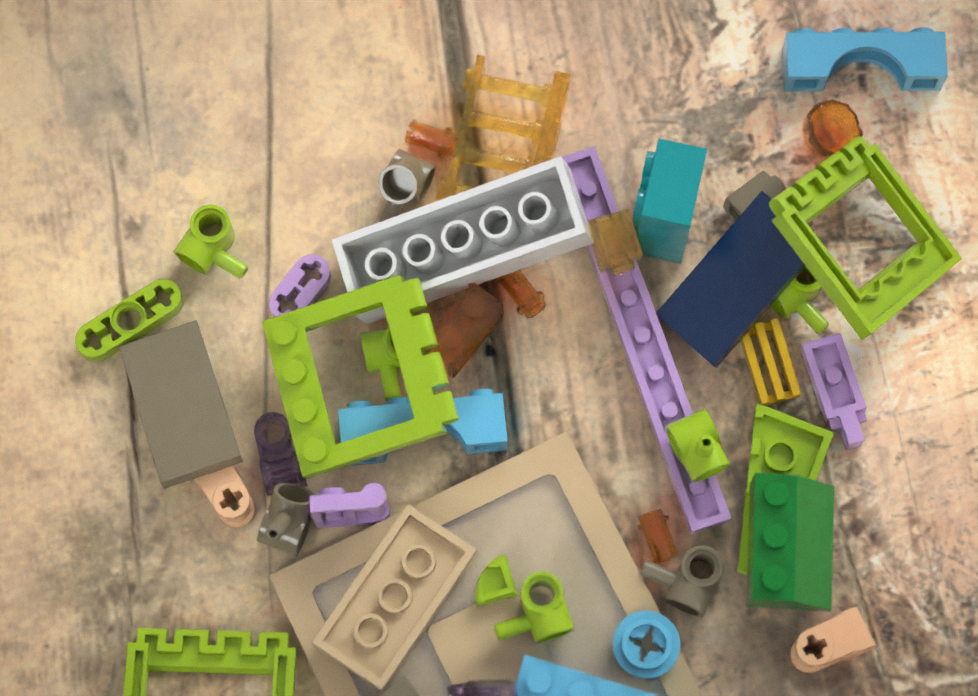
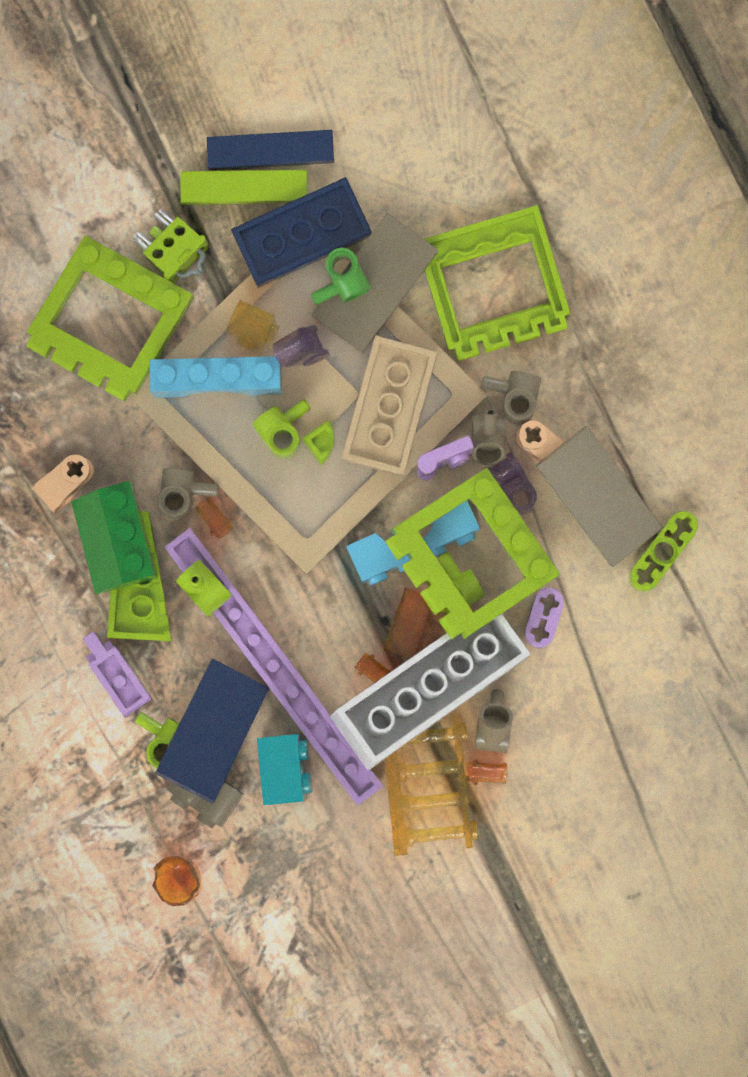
camera: 165 degrees right, 10 degrees up
(203, 251) = (627, 619): lime piece -> none
(226, 570) = (519, 386): none -> dark tan piece
(615, 242) = (314, 723): clear yellow brick -> none
(664, 636) = (186, 422): medium azure gear -> none
(760, 329) = (157, 656): yellow tile -> none
(899, 281) = (86, 773): lime hinge -> none
(913, 57) = (130, 964): medium azure arch -> none

